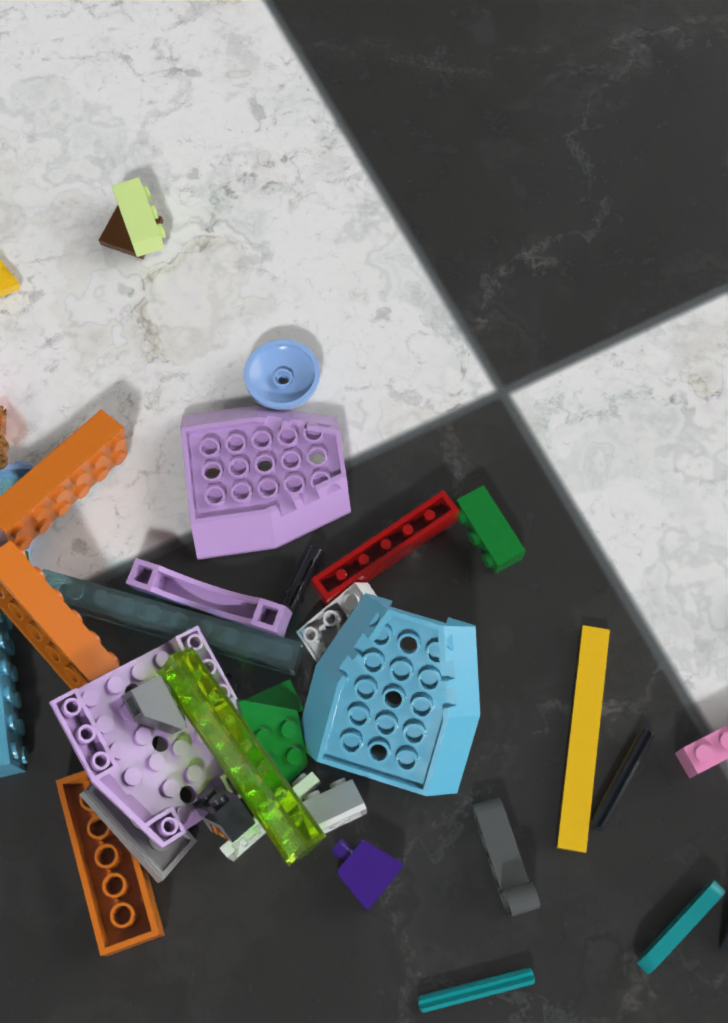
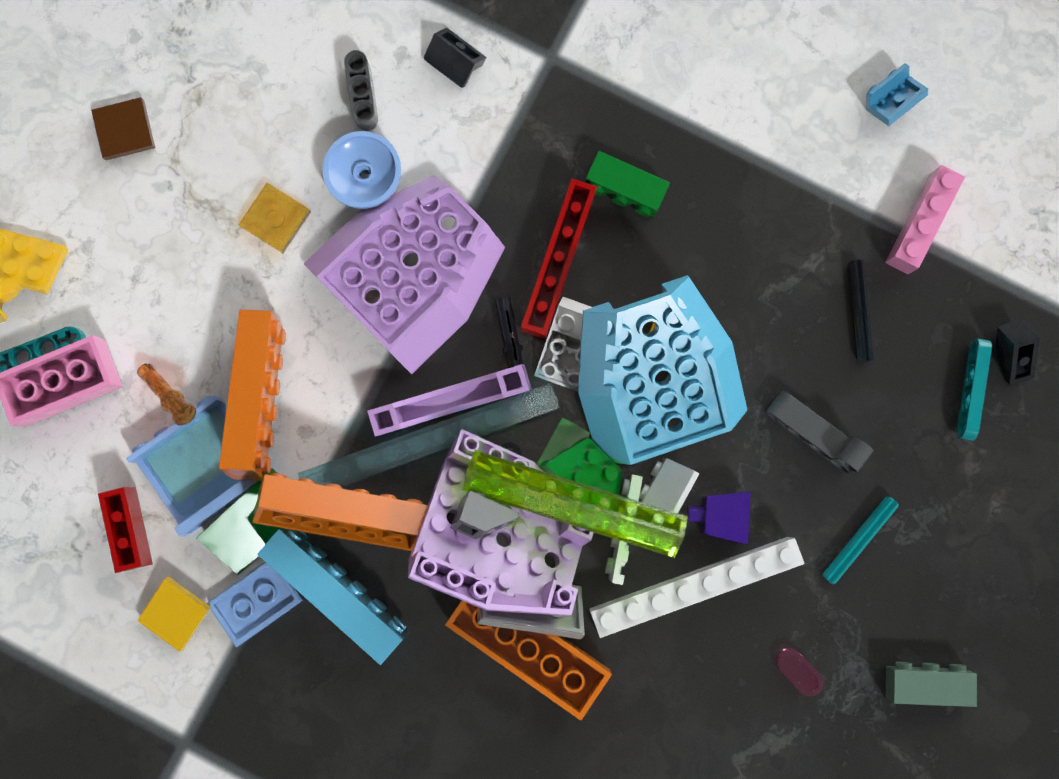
camera: 35 degrees left, 15 degrees up
(139, 216) = (122, 111): yellowish green brick -> none
(188, 367) = (274, 218): none -> clear yellow tile
(223, 813) = (593, 554): black brick -> none
(294, 915) = (696, 586): none -> white brick
(329, 327) = (356, 79): none -> dark grey beam
(422, 340) = (453, 56): none -> black panel
(583, 740) = (811, 299): yellow tile -> none

